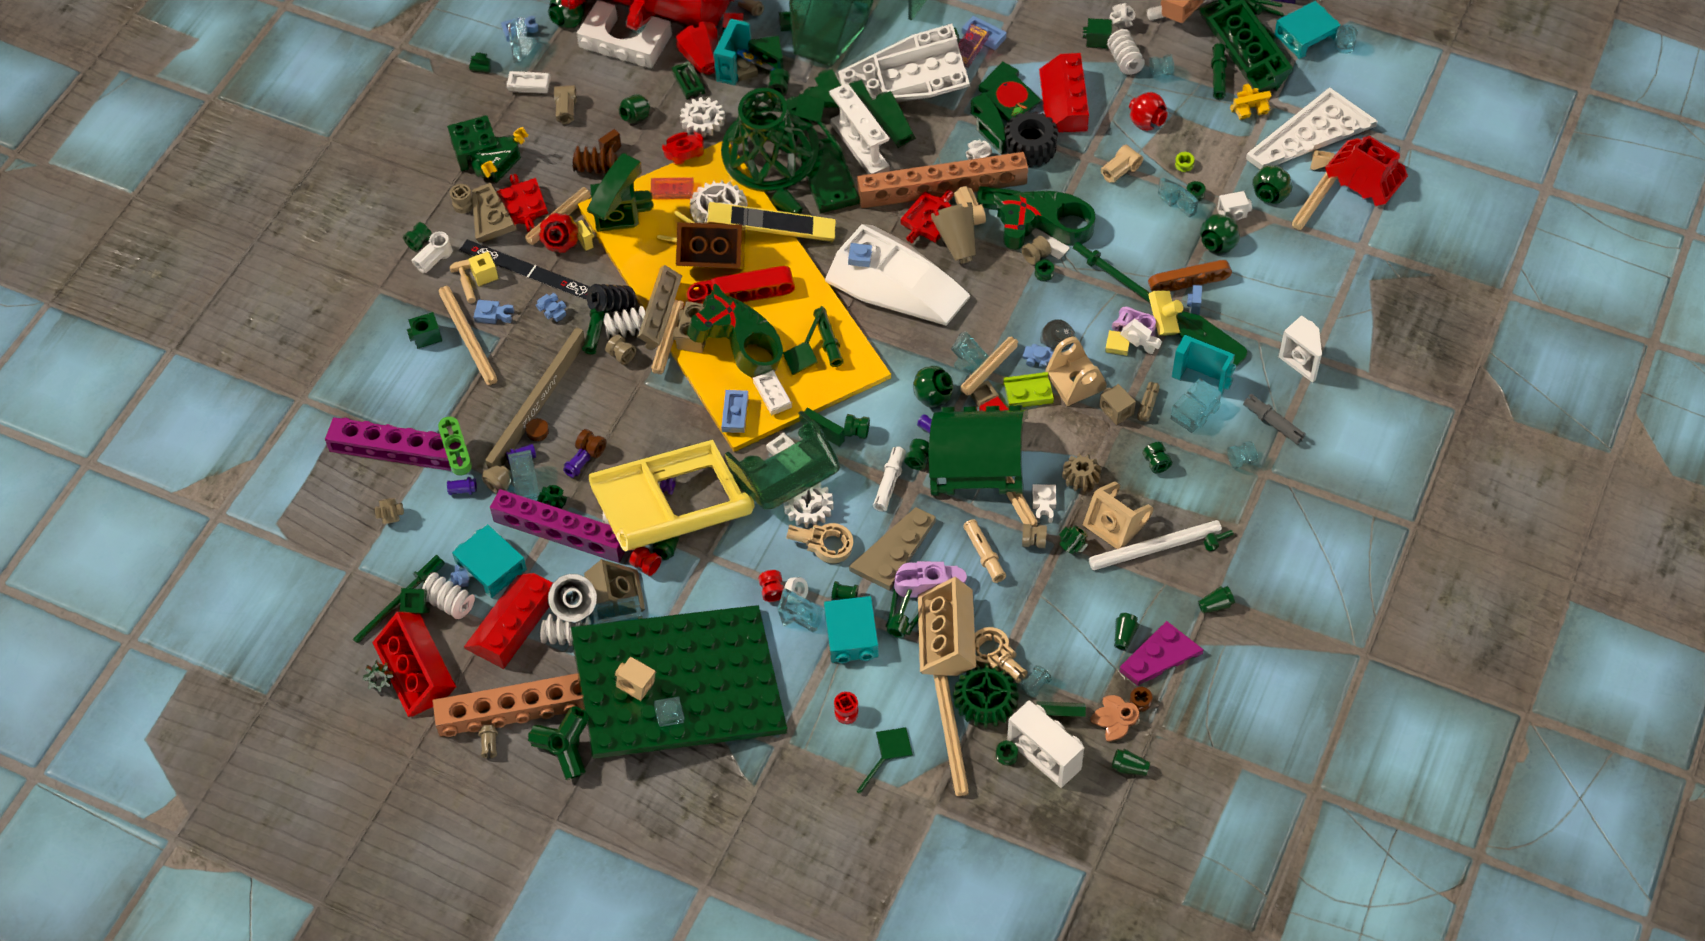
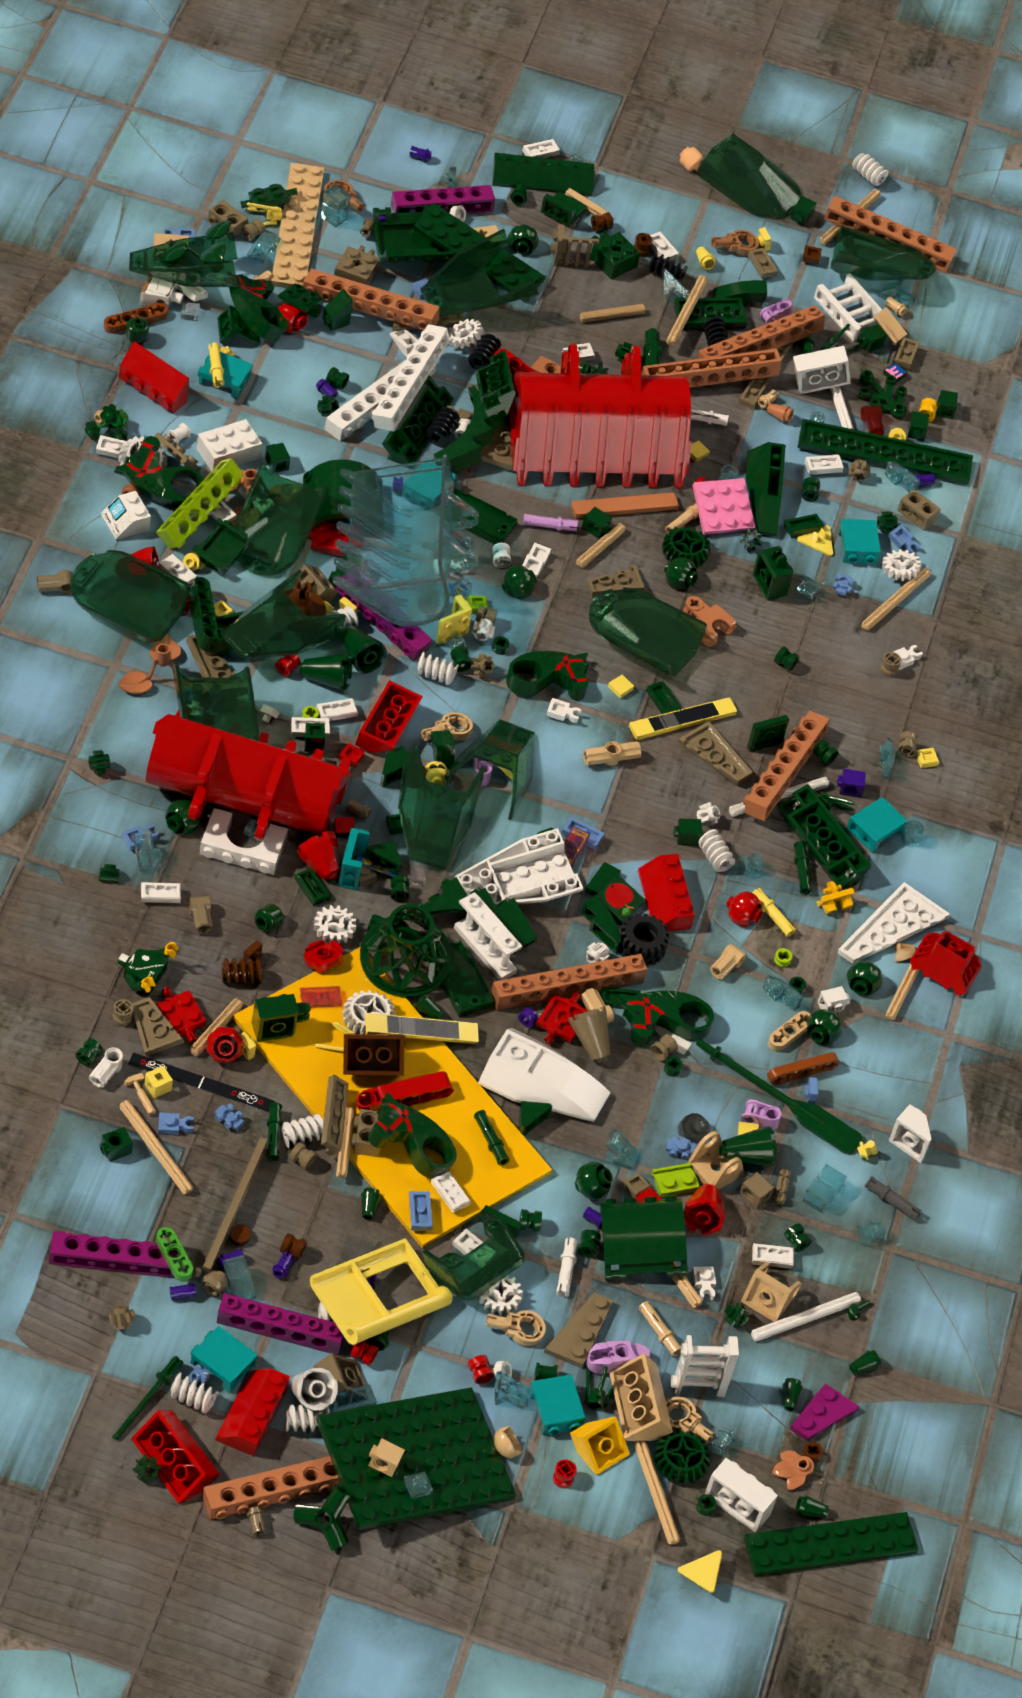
camera: 20 degrees left, 5 degrees down
(413, 600) = (166, 1398): dark green panel -> none
(471, 138) = (121, 953): dark green bracket -> none
(552, 496) = (271, 1296): dark green gear -> none
(611, 298) = (288, 1107): black piece -> none
(614, 186) = (281, 1002): dark green slope -> none
(684, 399) = (370, 1200): none -> dark green cone
(786, 668) = (507, 1443): none -> tan hair
(802, 355) = (470, 1155): dark green piece -> none
(812, 109) = (442, 919): dark green piece -> none
(860, 255) = (512, 1059): medium blue plate -> none
(879, 316) = (532, 1115): none -> dark green slope
(892, 215) = (528, 1017): none -> dark purple bush
(892, 744) = (608, 1504): dark green piece -> none
(893, 676) = (600, 1443): none -> yellow slope
(989, 365) = (638, 1159): tan axle -> none
(990, 829) = (703, 1571): none -> light yellow piece
(1028, 536) = (702, 1313): dark tan wheel -> none
(1042, 590) = (721, 1374): none -> white fence
(1053, 423) = (705, 1210): none -> red cone
(1063, 708) = (752, 1464): dark green tile -> none
(1081, 472) = (734, 1254): dark tan gear -> none
(1115, 357) = (751, 1147): none -> dark green cone
(1126, 475) = (775, 1255): none -> white plate
(1140, 335) = (765, 1120): white plate -> none
(1148, 807) = (830, 1544): none -> dark green plate
(1165, 312) = (788, 1103): light yellow tile -> none
(1174, 109) = (779, 919): none -> light yellow pin
(1177, 246) = (787, 1039): none -> tan beam
(1205, 360) = (829, 1147): teal panel -> none
(1251, 365) = (867, 1149): none -> light yellow plate

